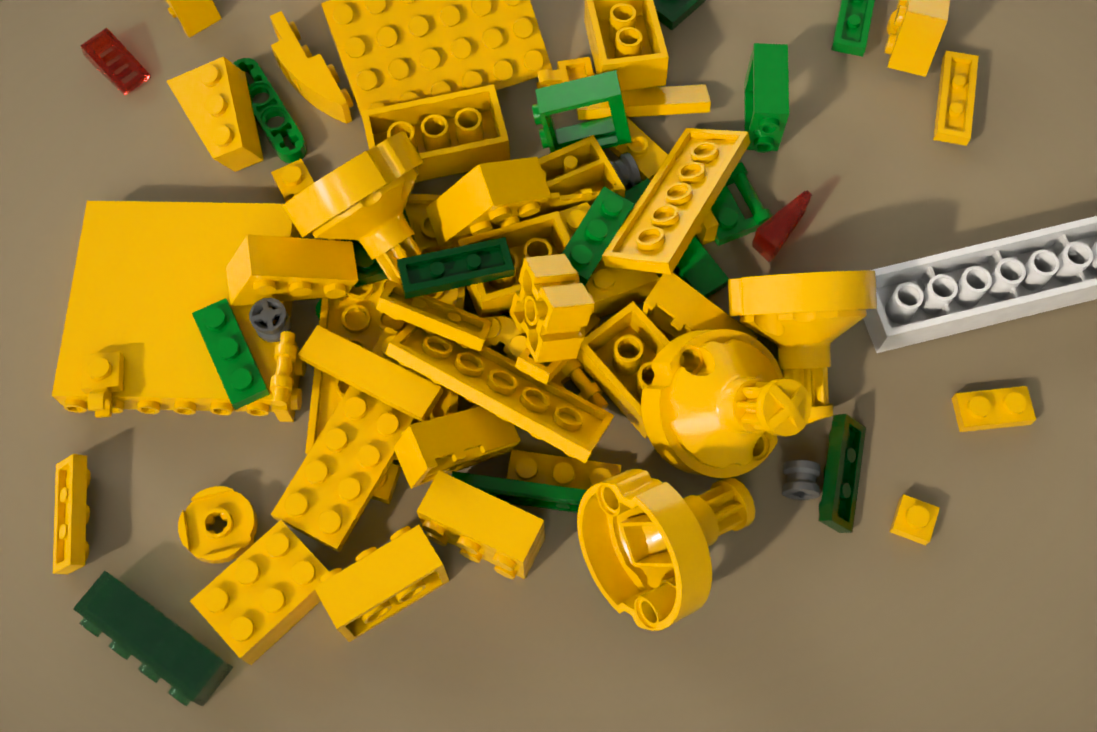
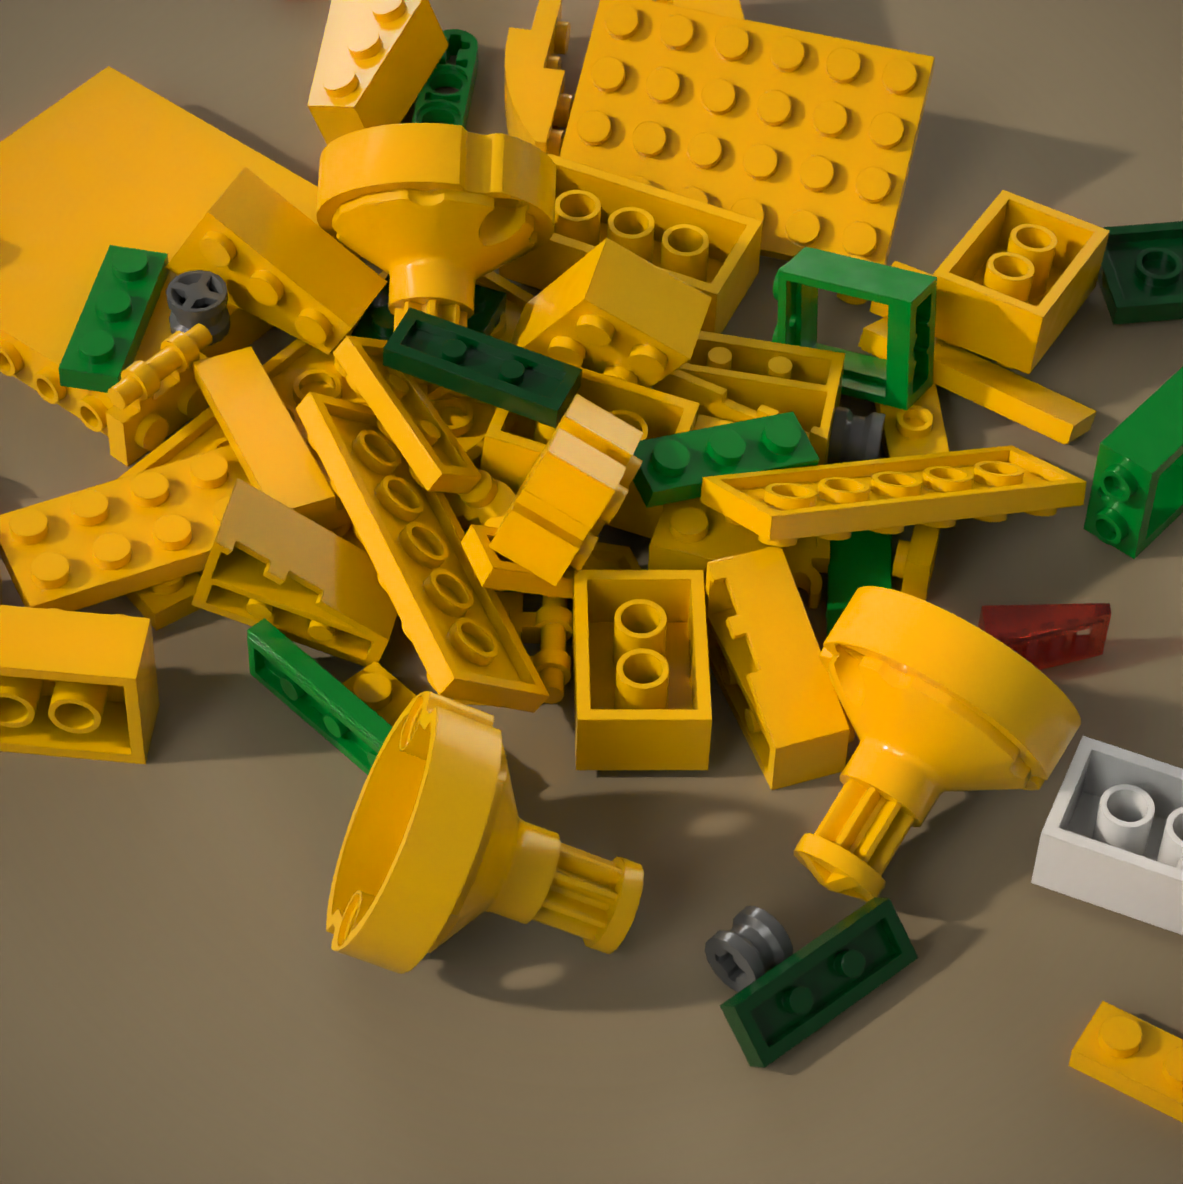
camera: 35 degrees right, 20 degrees down
(481, 526) = (239, 702): yellow brick -> none
(722, 406) = (698, 750): yellow piece -> none
(728, 214) = (970, 560): green plate -> none
(914, 519) = (878, 1117): yellow plate -> none

